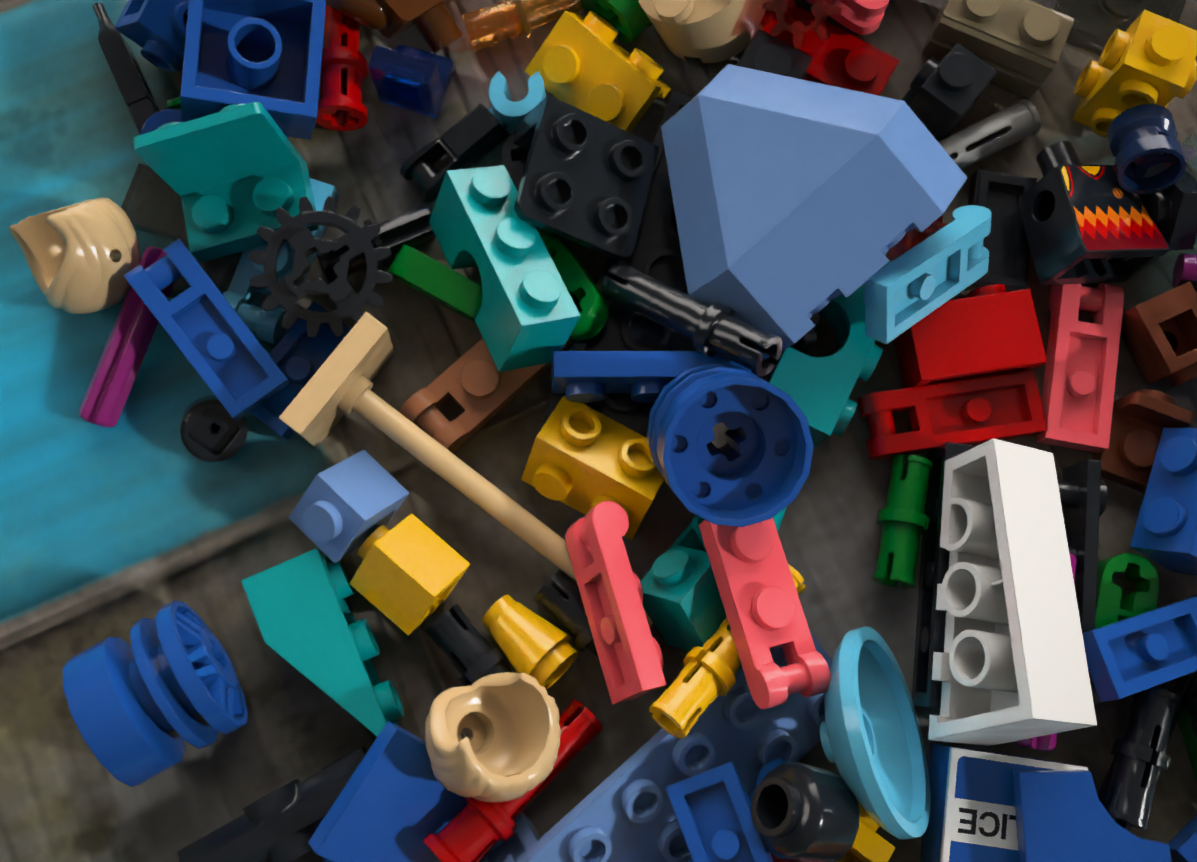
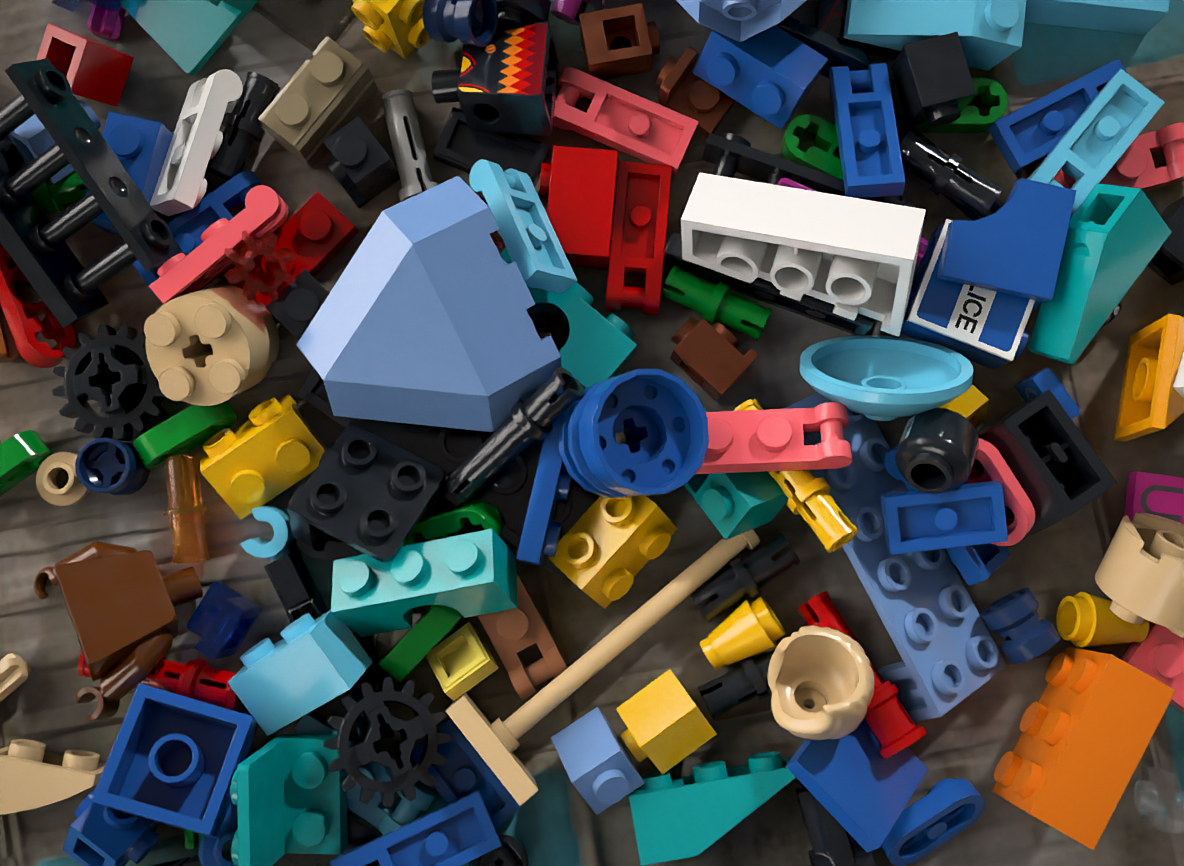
camera: 65 degrees left, 5 degrees up
(376, 163) = (300, 671): none -> medium azure brick
(427, 334) = (461, 661): none -> light yellow tile
(614, 603) = (733, 558): coral plate -> none
(839, 529) = (710, 356): none -> copper brick

